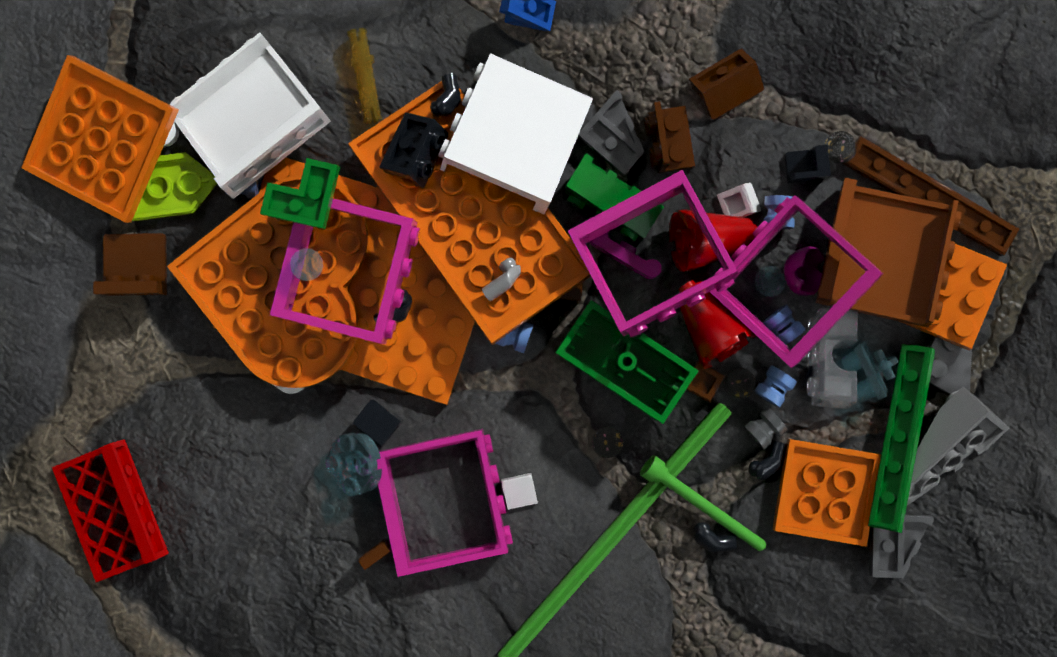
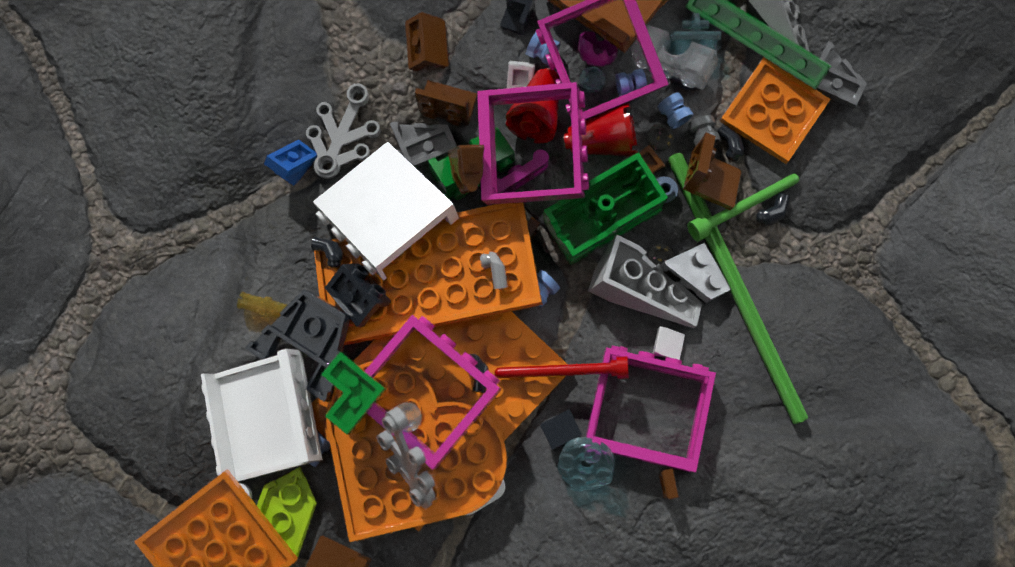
camera: 60 degrees left, 10 degrees down
(280, 257) = (406, 461): none -> light grey plant
(357, 124) = (312, 328): none -> black wing
(463, 449) = (616, 367): none -> red piece
(567, 431) = (635, 282): none -> light grey wedge
(579, 44) = (341, 135): none -> light grey plant
(596, 198) = (466, 166): none -> reddish brown piece
(608, 489) = (698, 272): none -> wing
(690, 420) = (672, 186): none -> sand blue plate
(717, 457) = (711, 177): none -> reddish brown bracket

